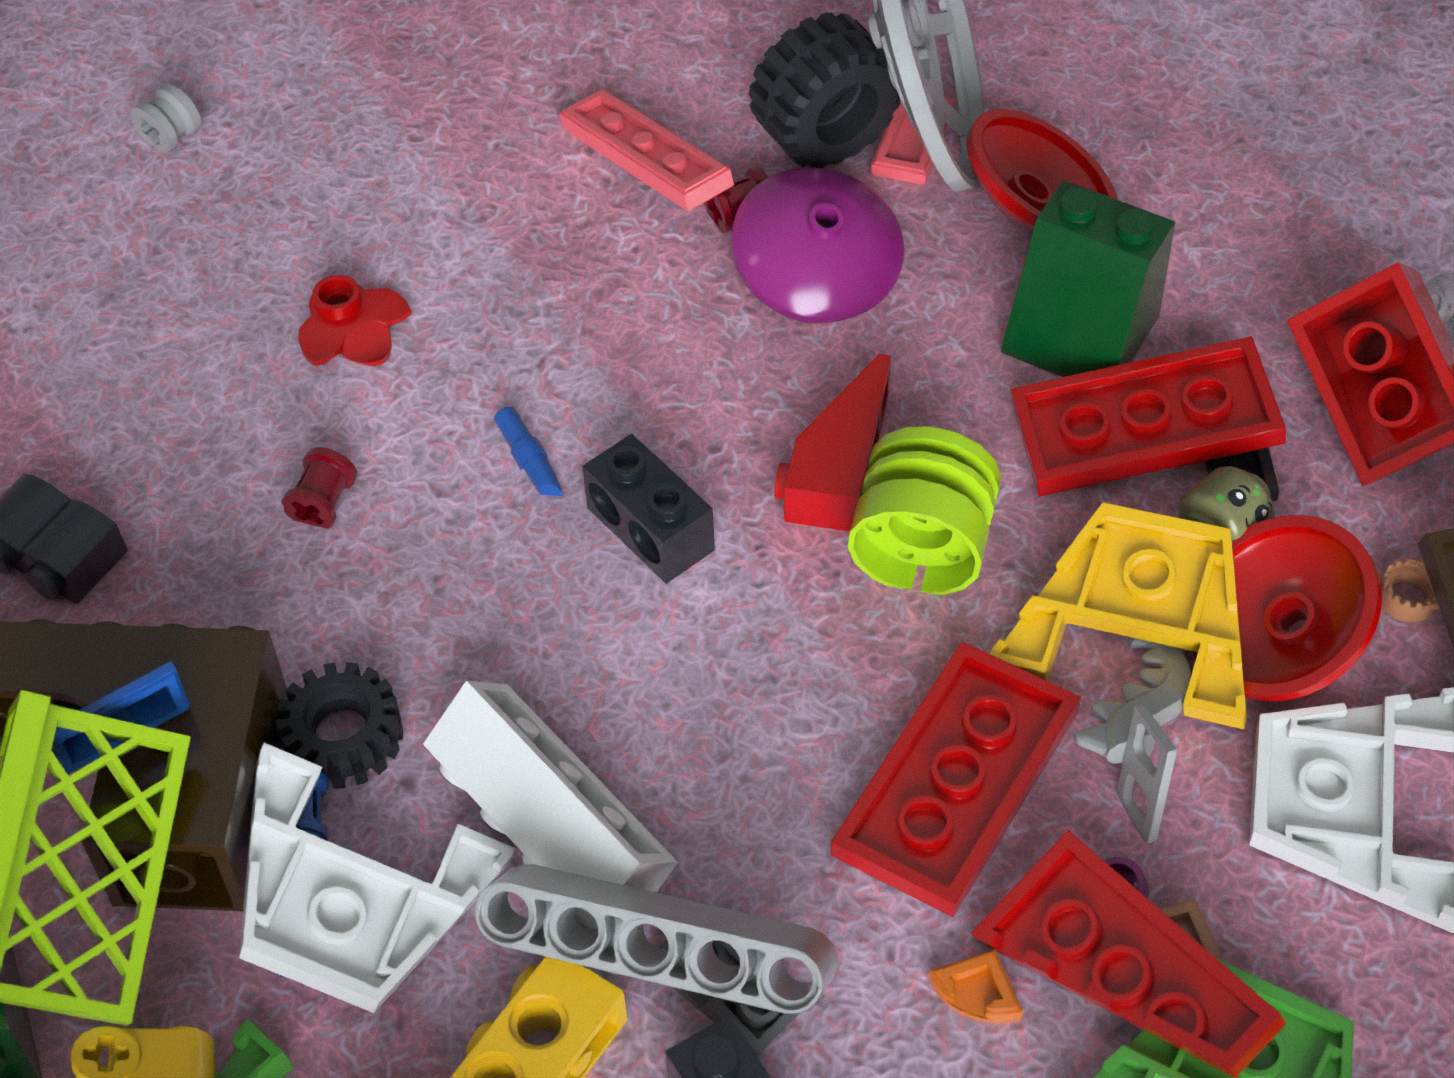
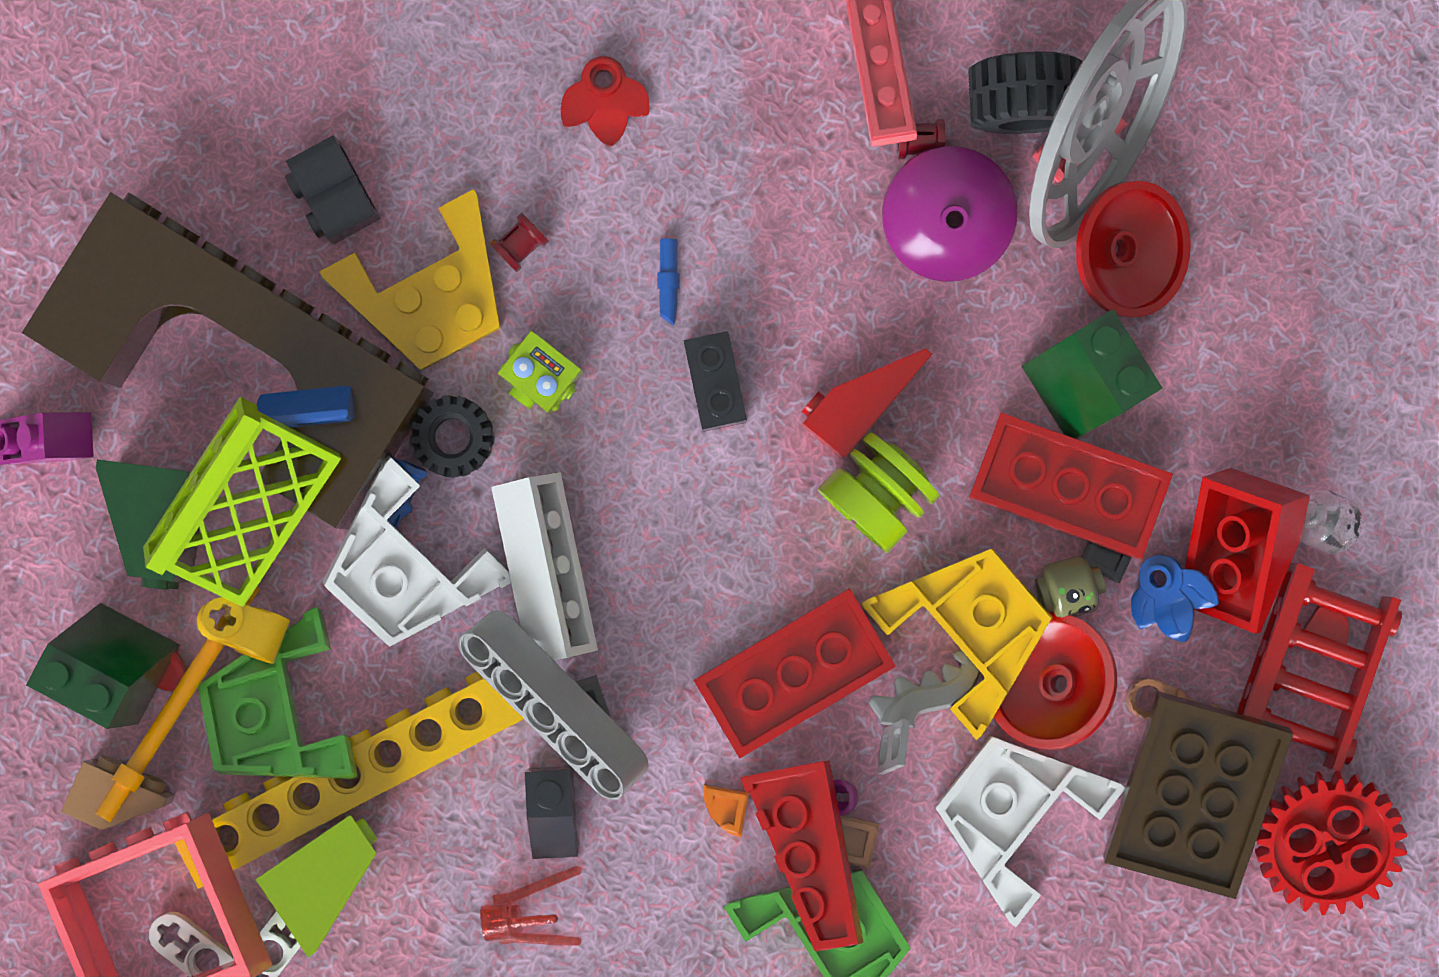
camera: 30 degrees right, 35 degrees up
(260, 582) = (438, 306): none -> yellow wing
(420, 601) = (539, 374): none -> lime head
(1356, 473) = (1173, 603): none -> blue plate

